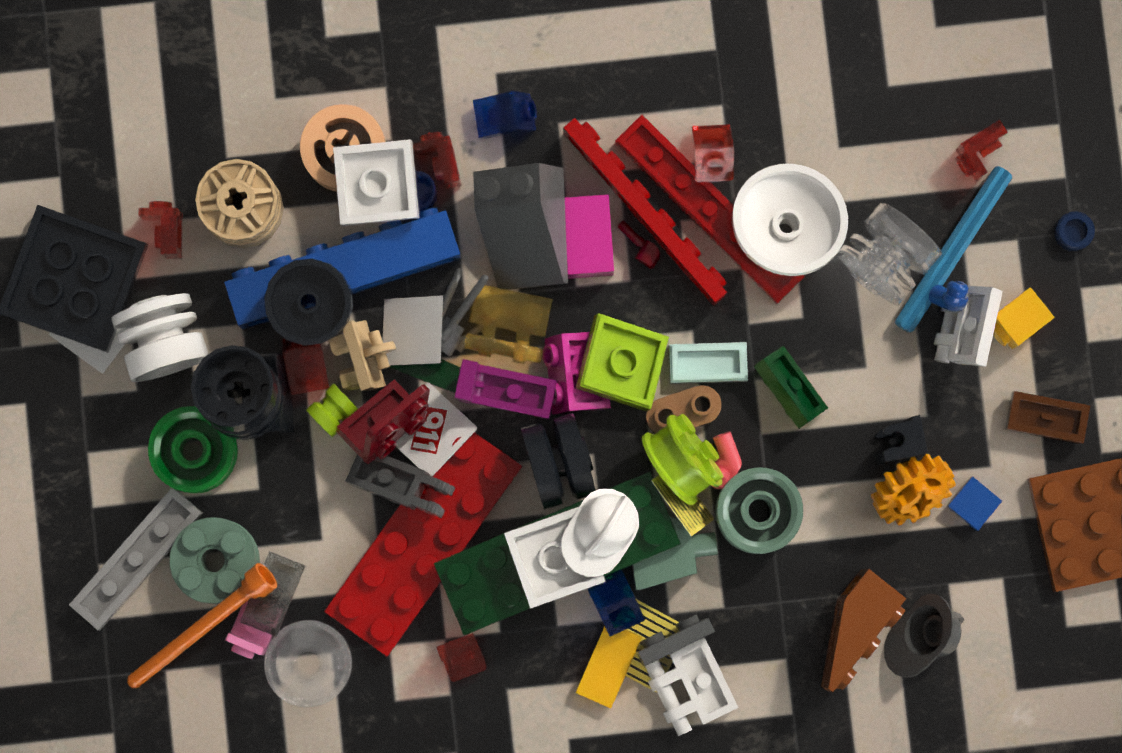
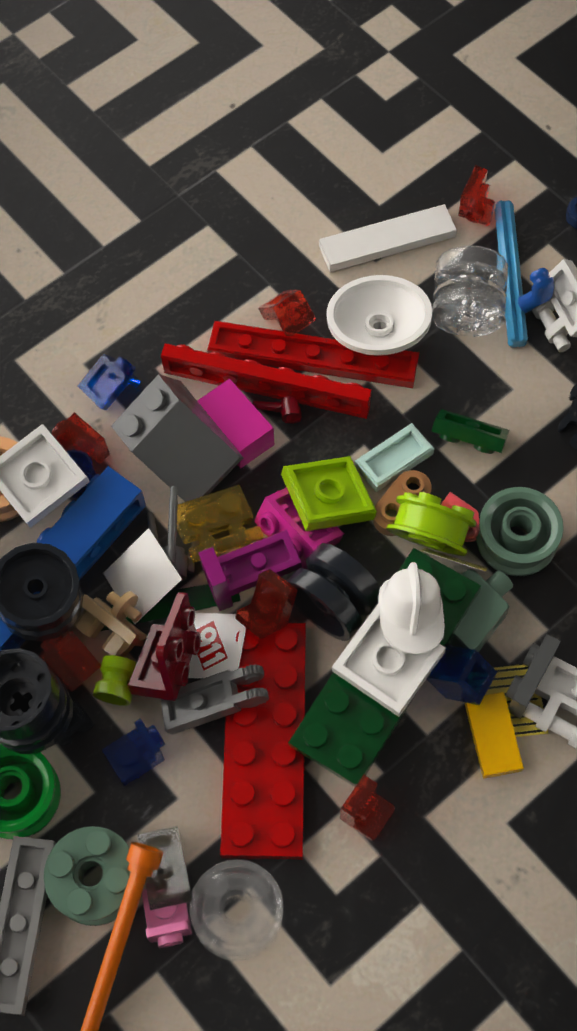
camera: 30 degrees left, 20 degrees down
(310, 480) = (135, 752): none -> clear blue bracket
(494, 438) = (269, 606): none -> clear red bracket
(867, 131) = (387, 238): none -> white tile

